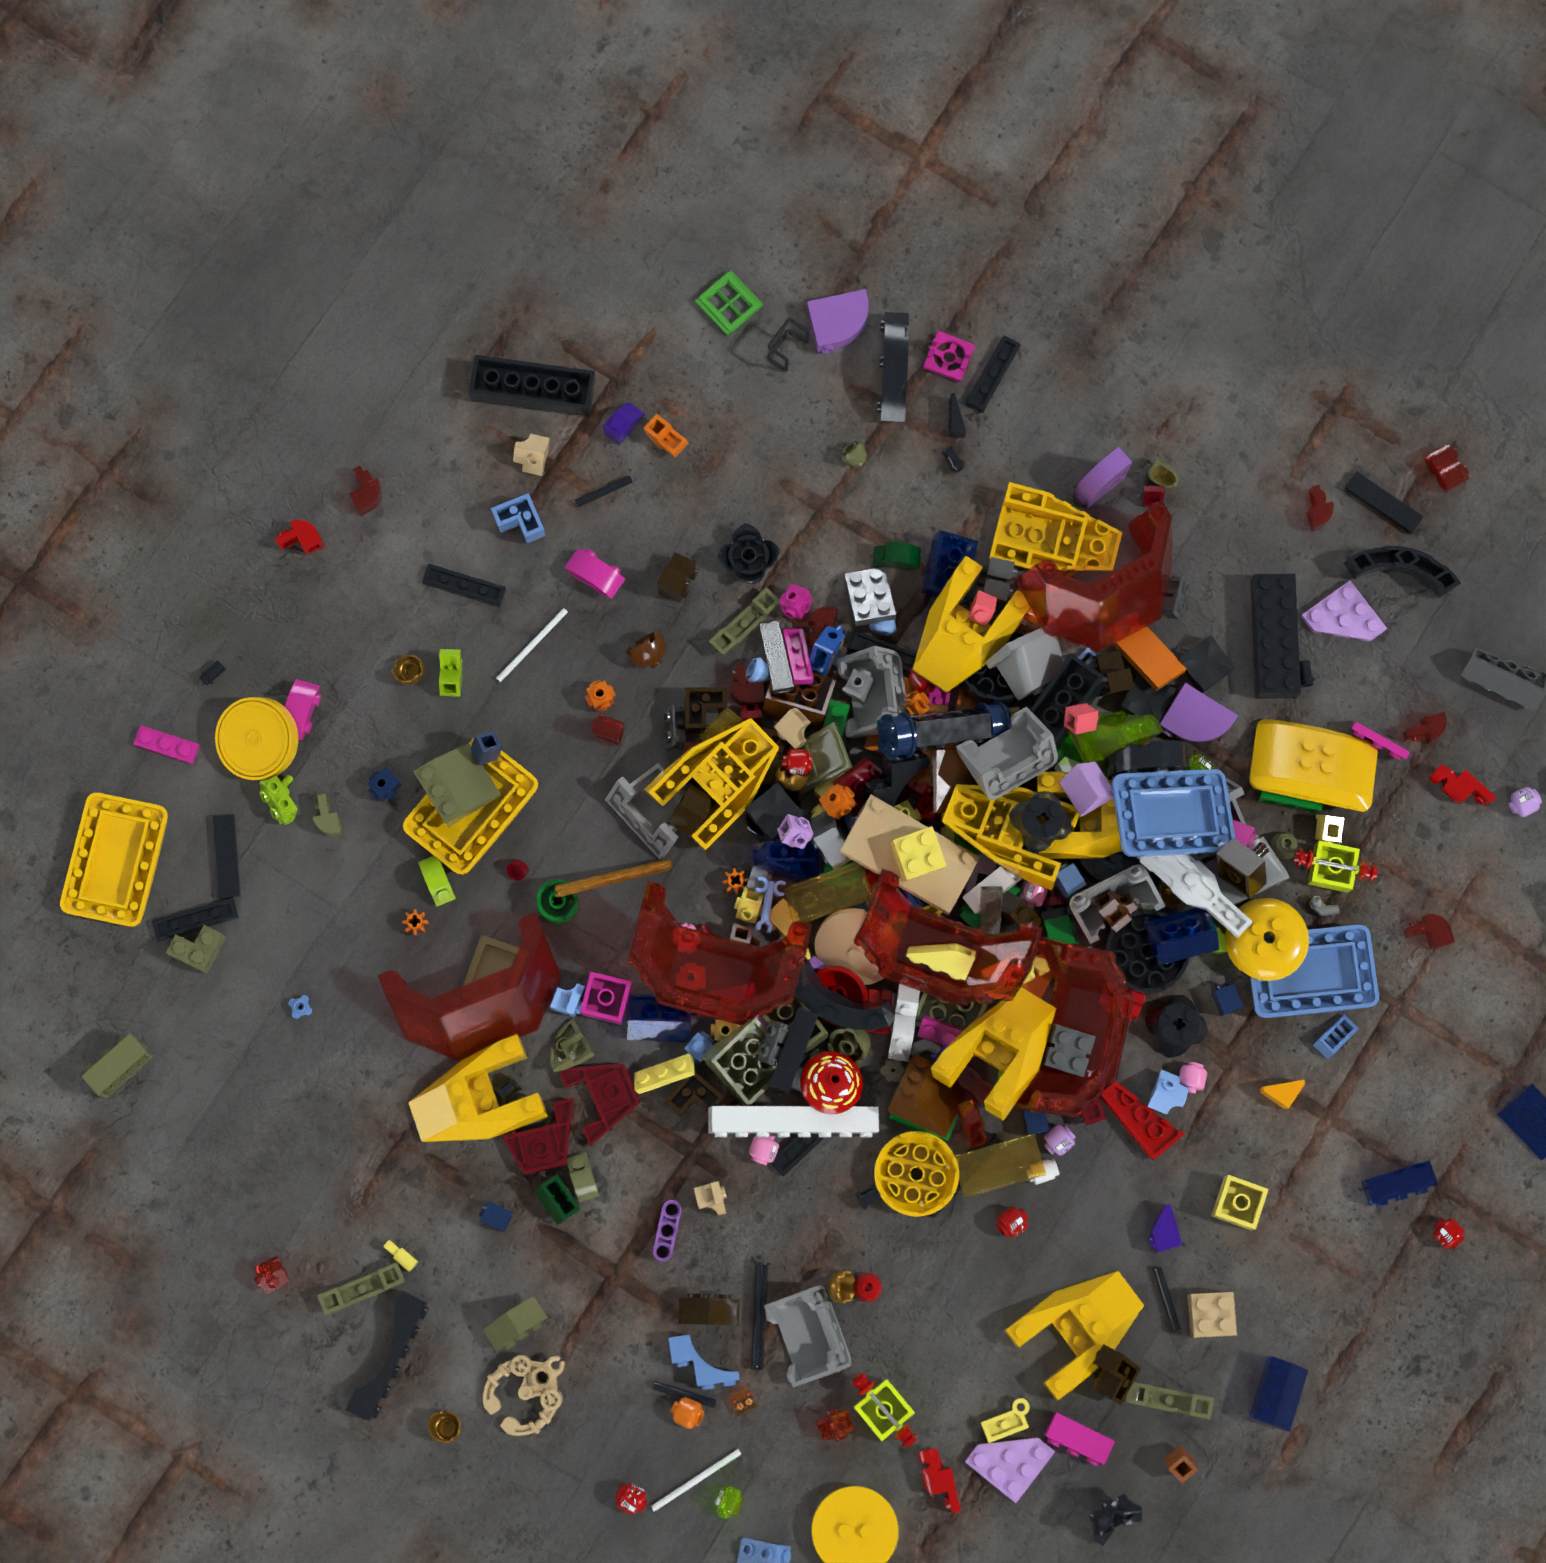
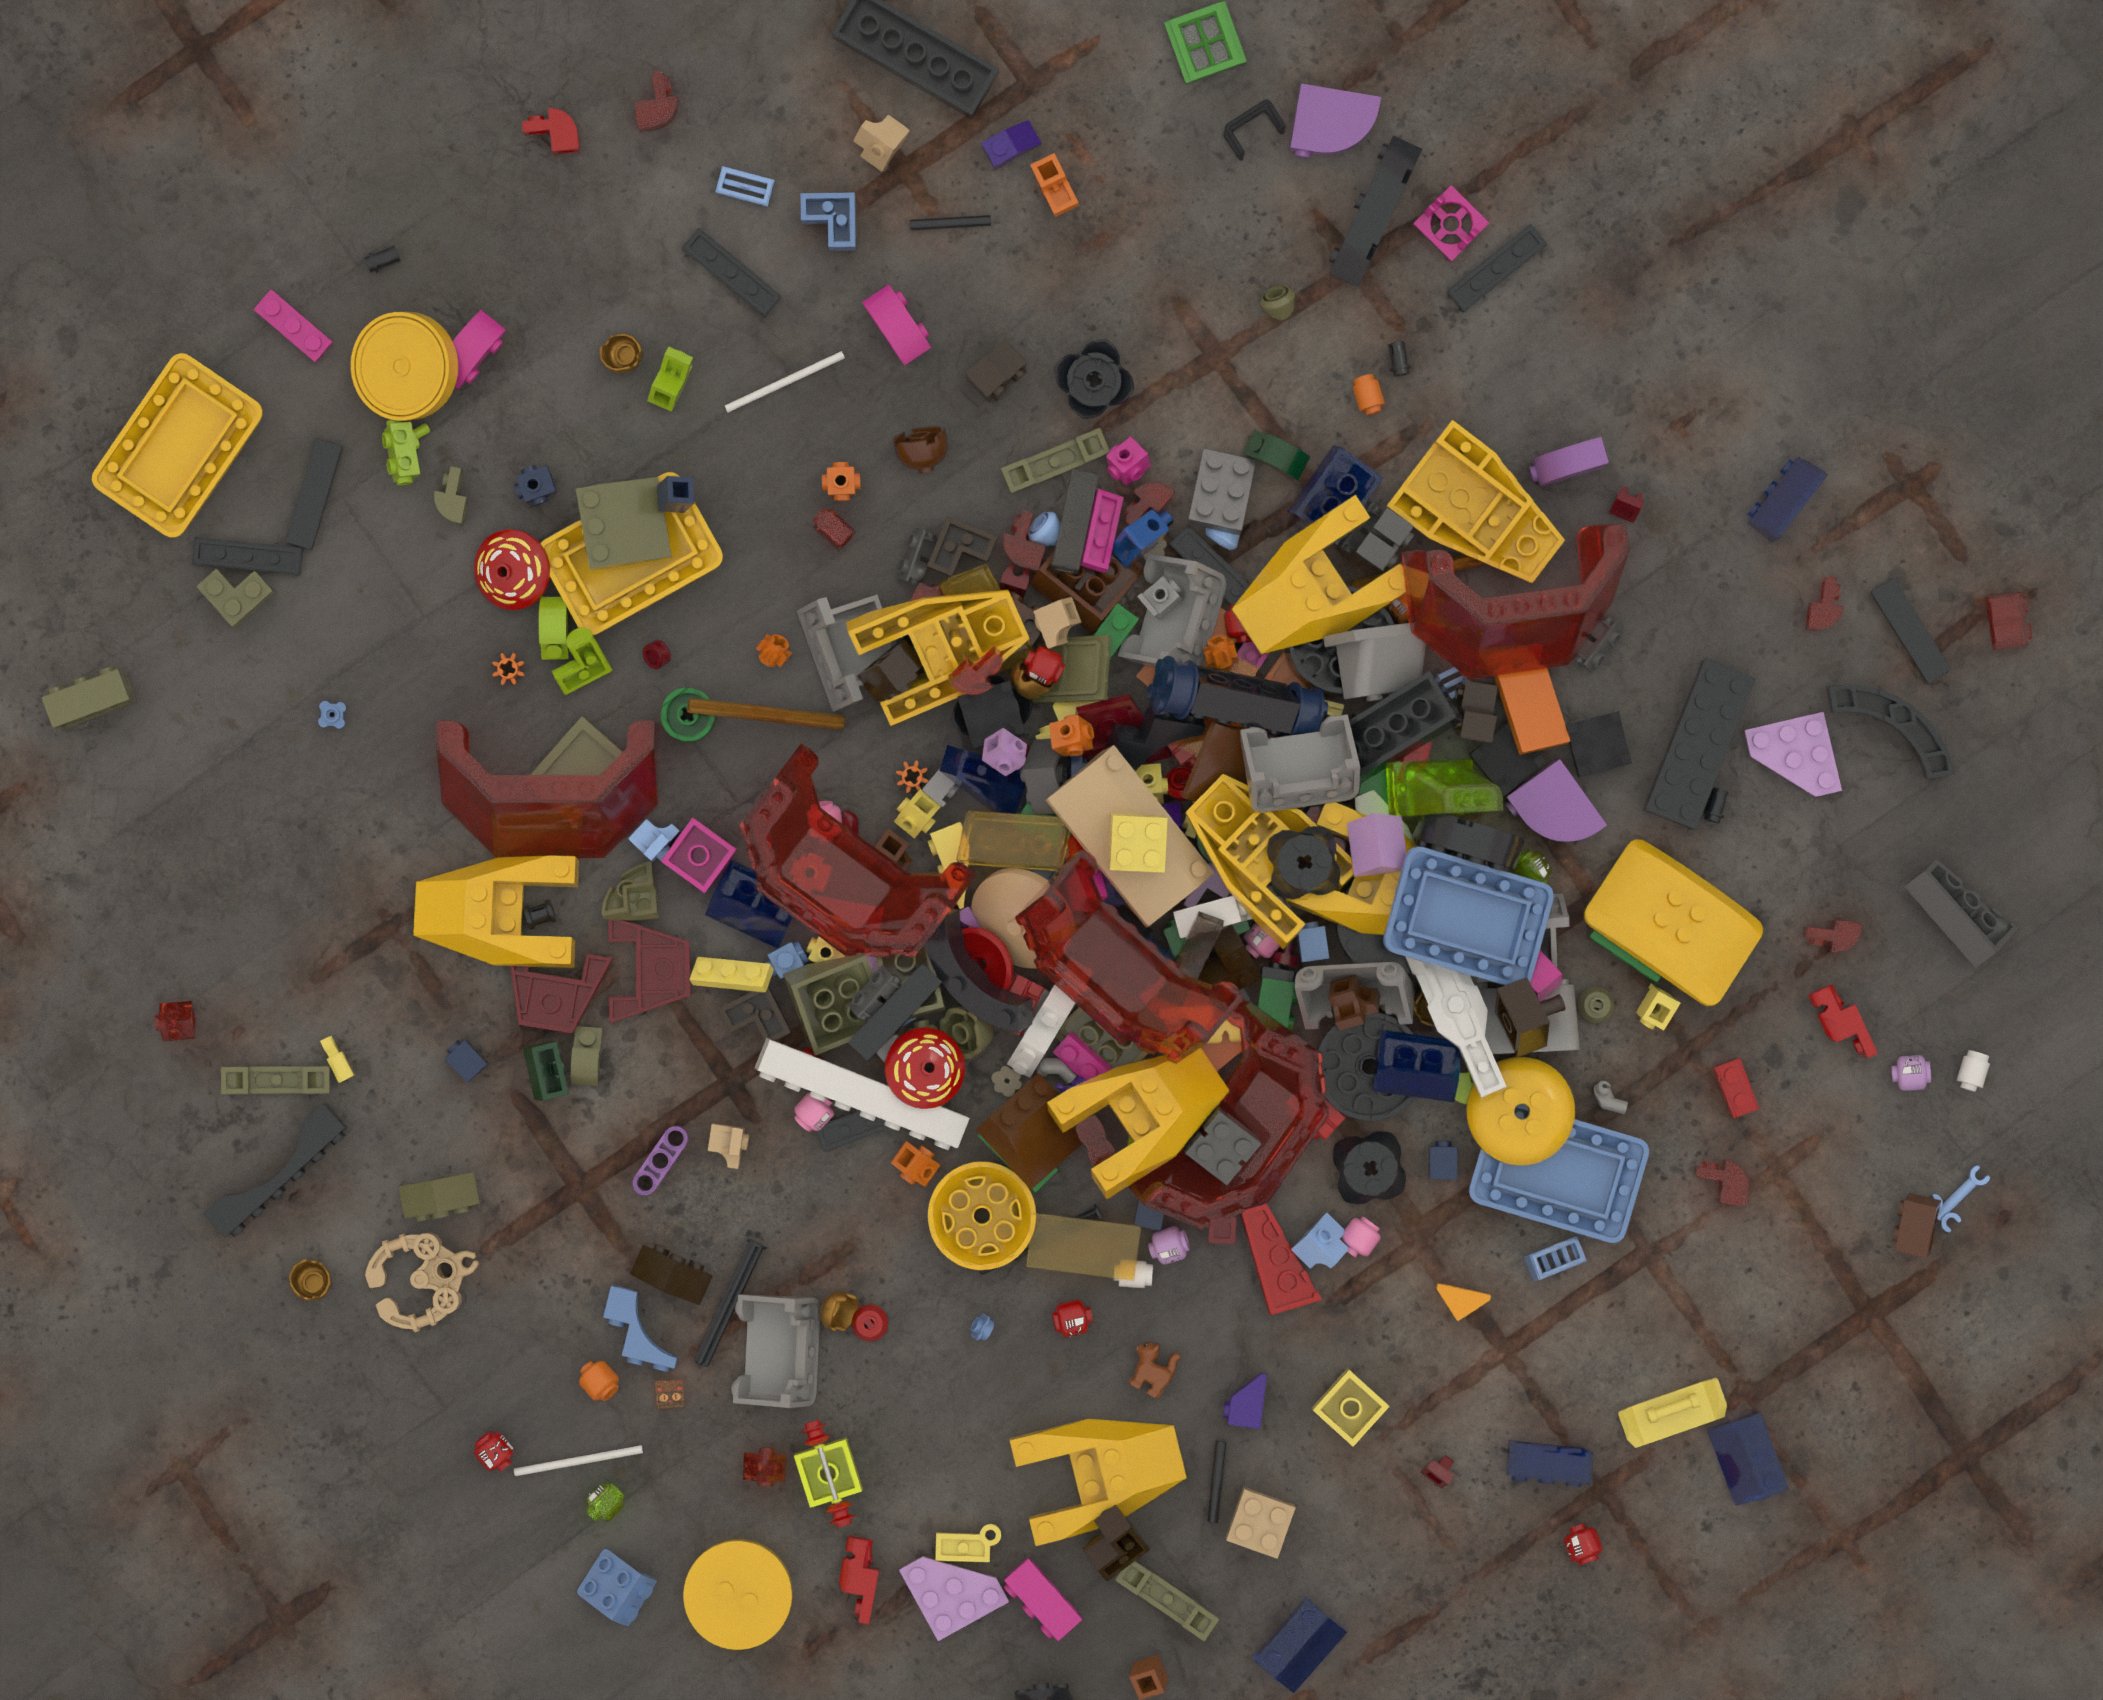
camera: 25 degrees right, 10 degrees up
(401, 846) = (525, 565): none -> red dish
(467, 528) = (767, 192): none -> light blue tile
(471, 897) = (588, 662): none -> lime brick
(600, 832) = (773, 650): none -> orange gear
(684, 1393) = (602, 1355): black bar -> none
(751, 790) = (974, 678): none -> clear red brick
(770, 888) = (948, 804): light blue bar -> none
(853, 1156) = (915, 1164): none -> orange brick
(868, 1196) = (914, 1218): black bush -> none
(942, 491) = (1368, 394): none -> orange brick
(949, 958) = (1120, 980): light yellow slope -> none
(950, 1256) = (982, 1327): none -> medium blue plate
(956, 423) = (1421, 315): black slope -> none
(971, 1124) = (1071, 1184): clear red brick -> none
(982, 608) = (1348, 568): coral brick -> none
(1081, 718) = (1406, 757): coral brick -> none
(1084, 1237) = (1155, 1374): none -> dark orange animal
(1163, 474) = (1650, 484): rock -> none
(1260, 446) = (1785, 498): none -> clear blue slope
(1322, 1223) = (1438, 1471): none -> dark red tile
(1334, 866) = (1642, 1056): neon yellow brick -> none
(1379, 741) = (1768, 925): dark pink plate -> none
(1408, 862) = (1735, 1087): none -> red brick
(1469, 1111) = (1673, 1412): none -> light yellow piece

